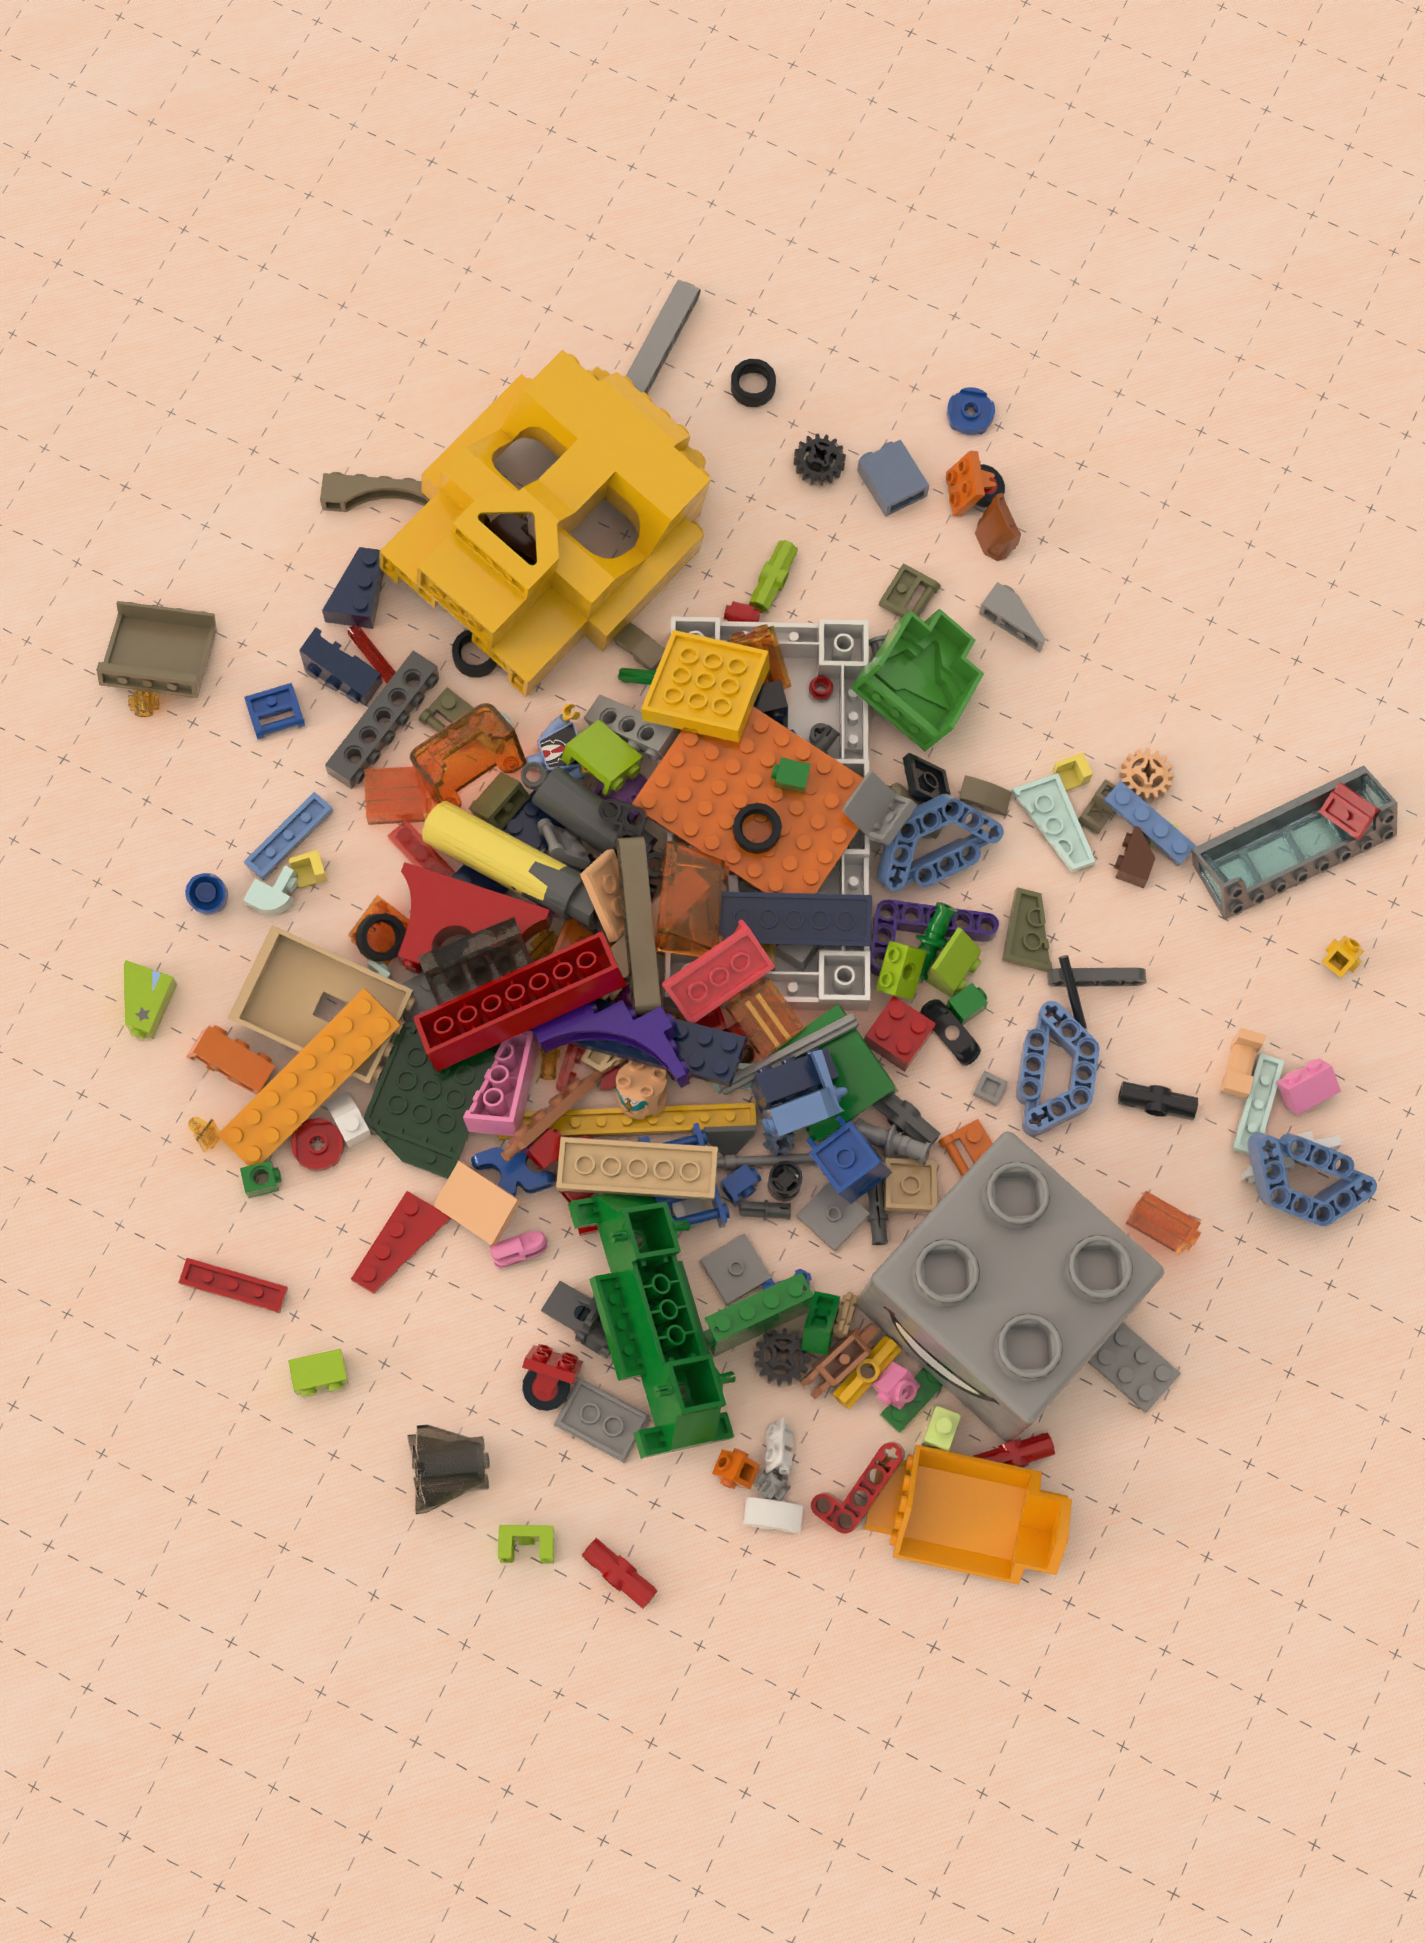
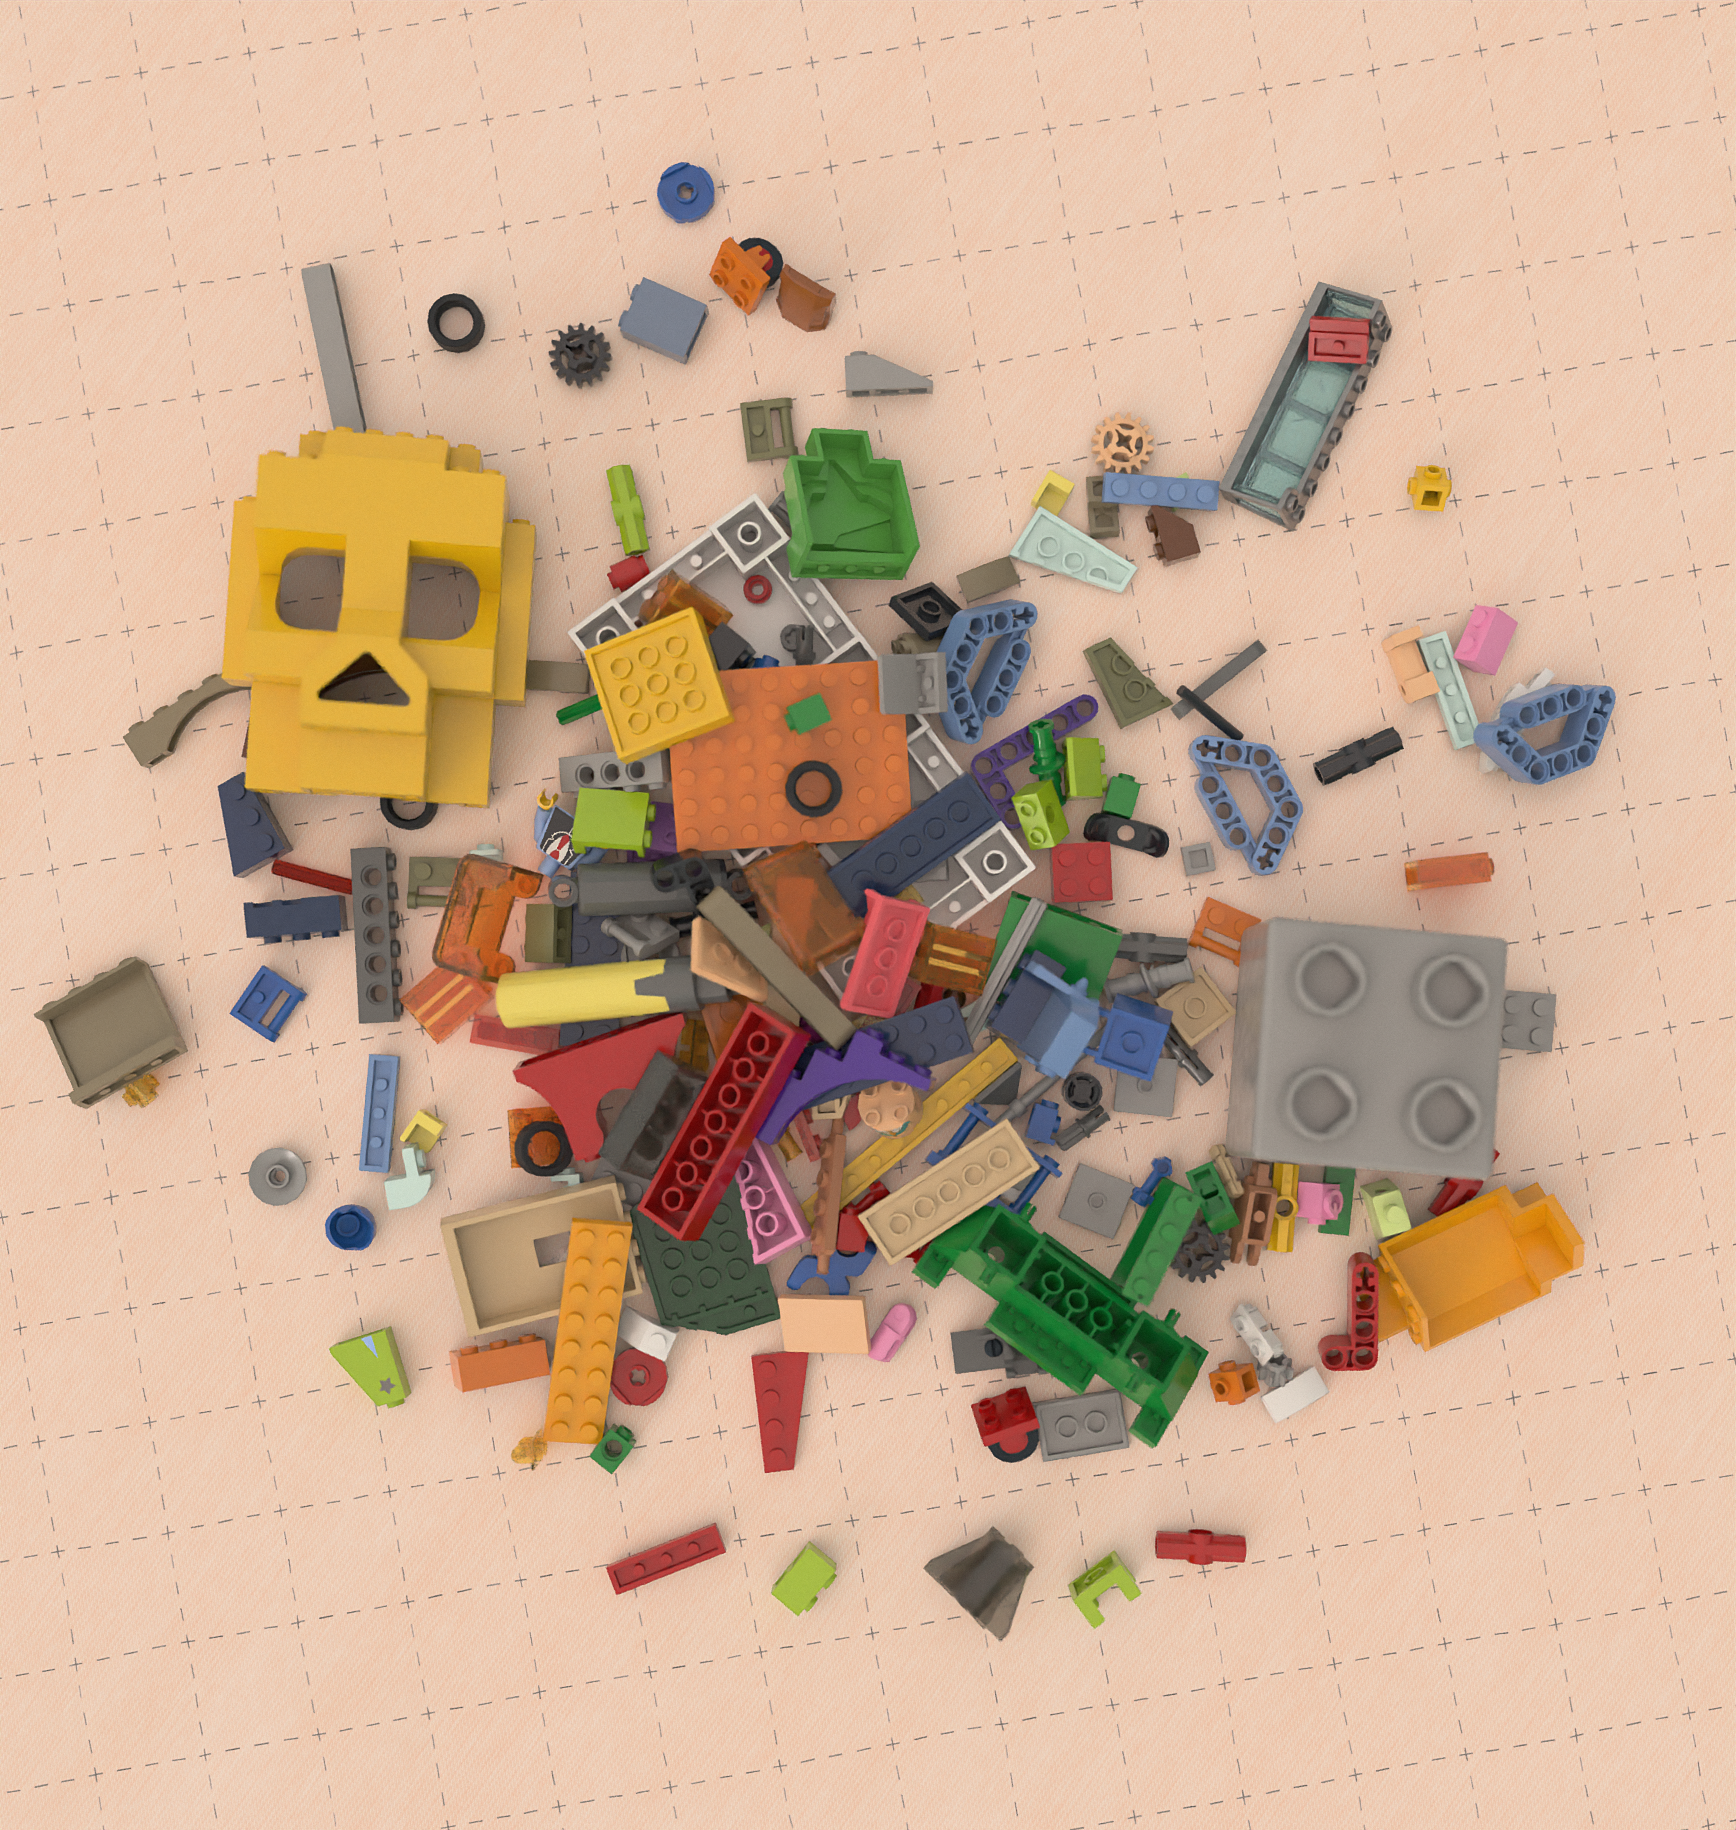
camera: 30 degrees left, 15 degrees up
(186, 814) = (264, 1181): none -> light grey dish

